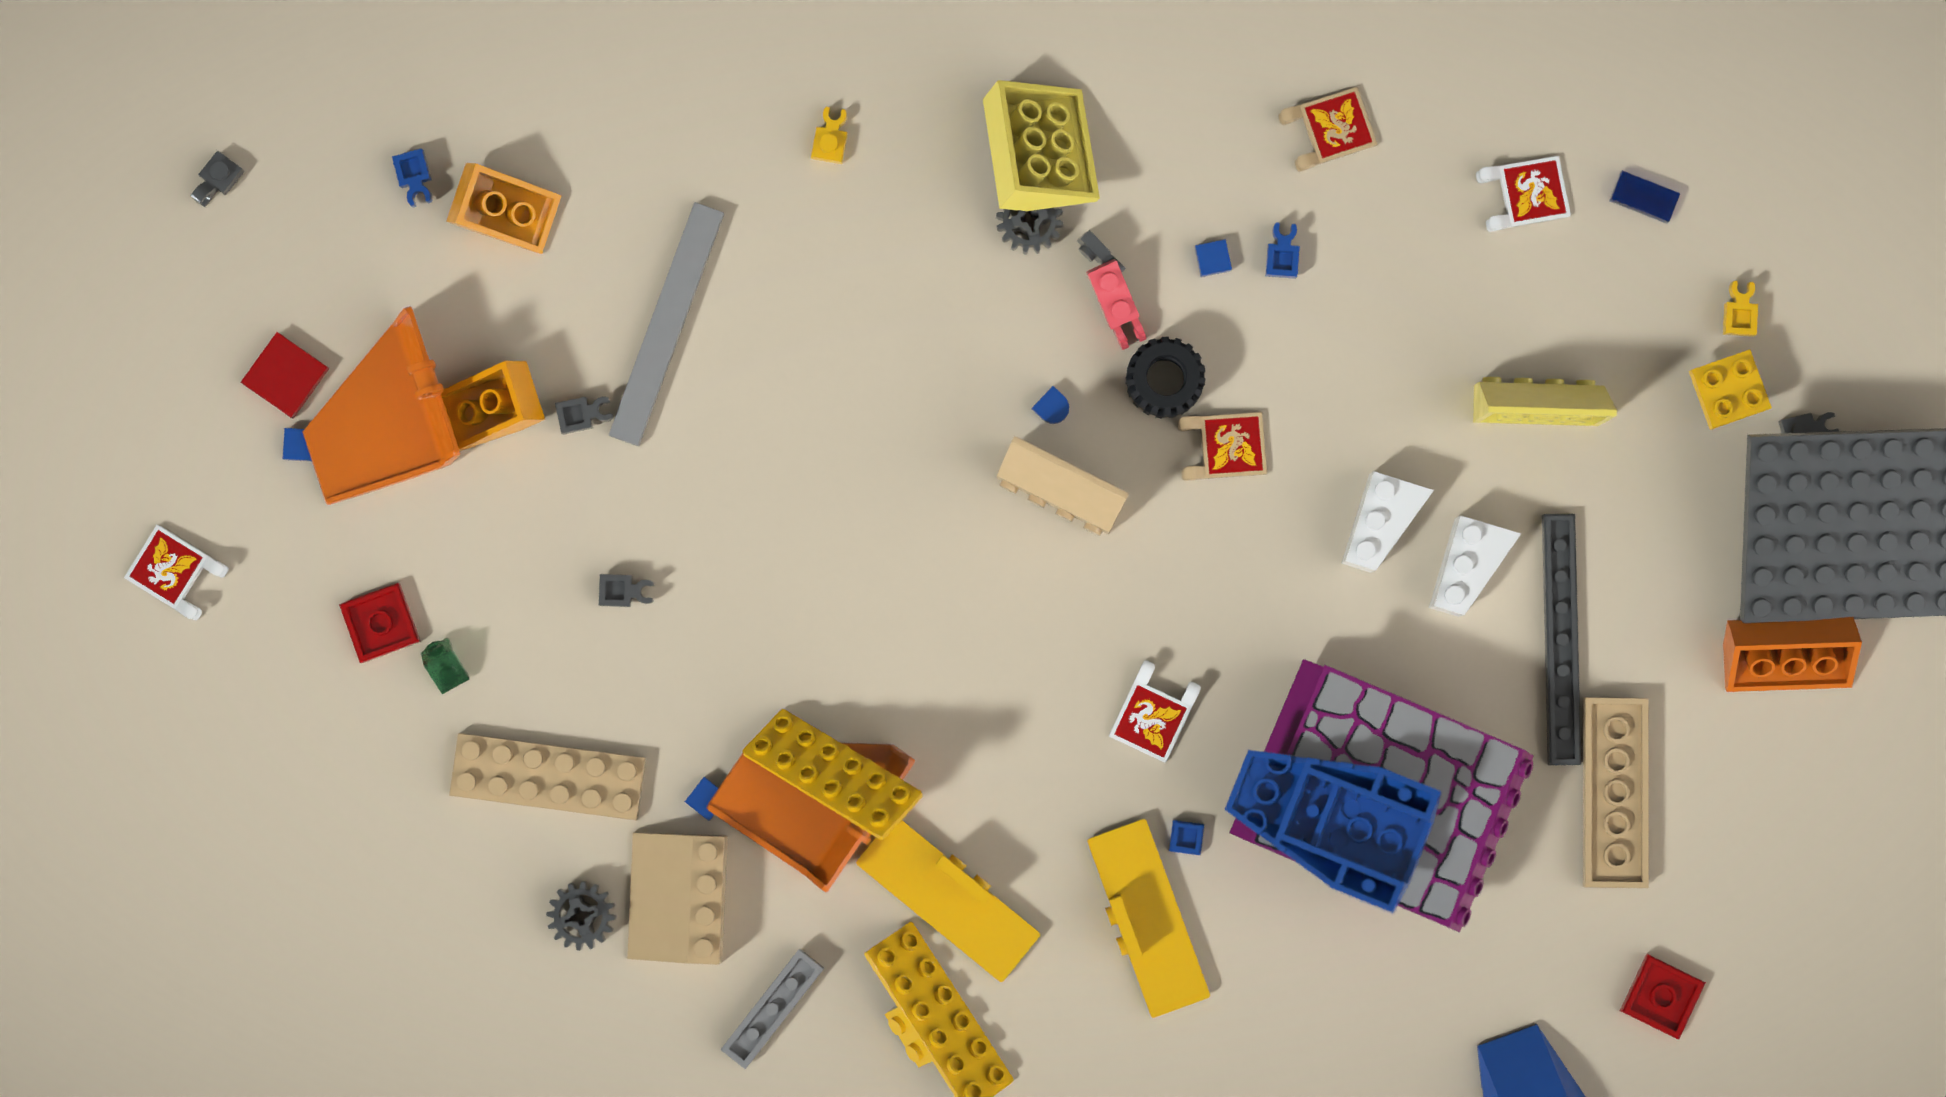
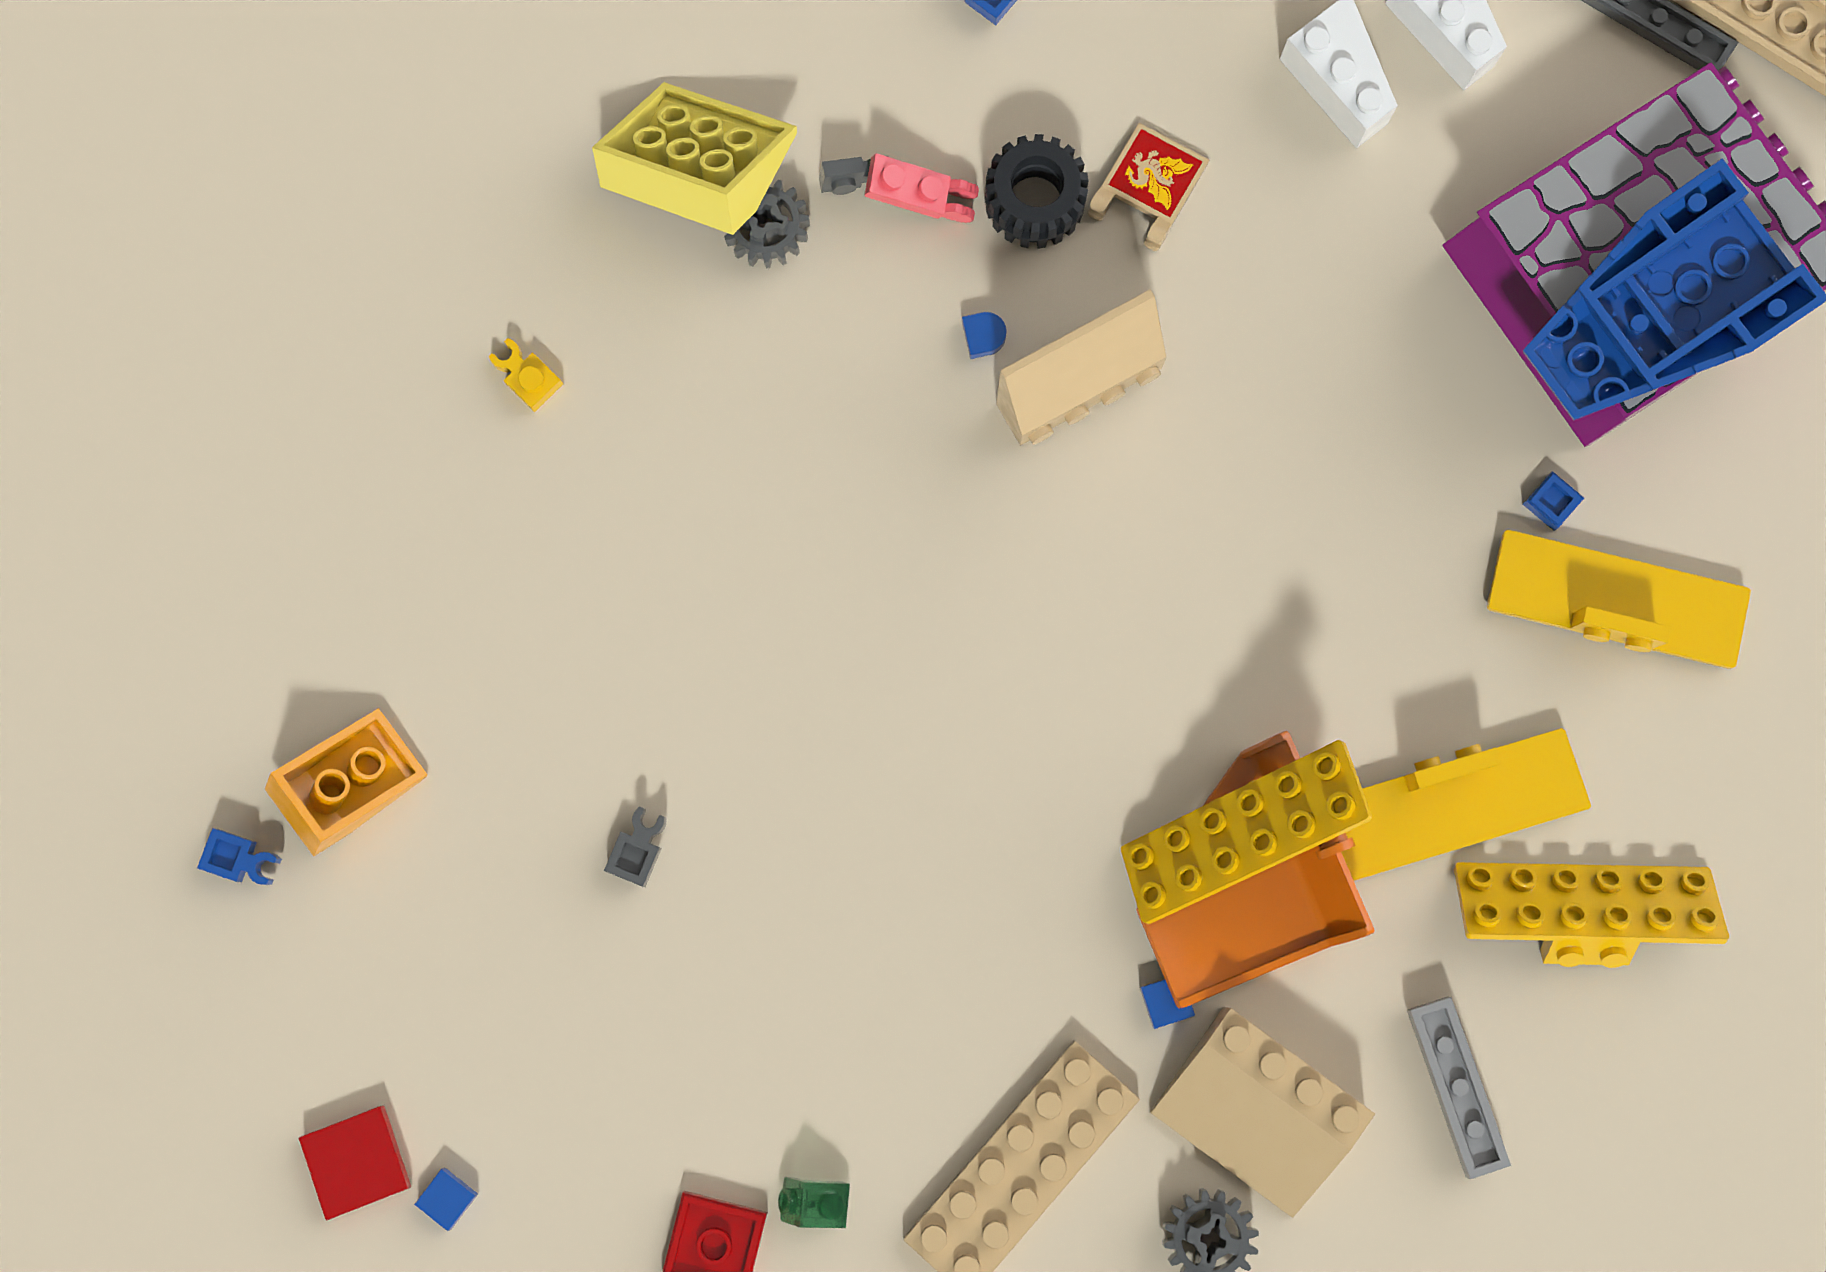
camera: 55 degrees left, 5 degrees down
(219, 175) = (73, 1084): dark grey plate -> none
(383, 419) = (485, 1080): orange panel -> none
(492, 404) = (554, 948): light orange slope -> none
(619, 590) = (864, 941): dark grey plate -> none
(666, 324) = (604, 689): light grey tile -> none
(1151, 717) = (1397, 451): flag -> none
(1213, 258) = (939, 65): blue tile -> none

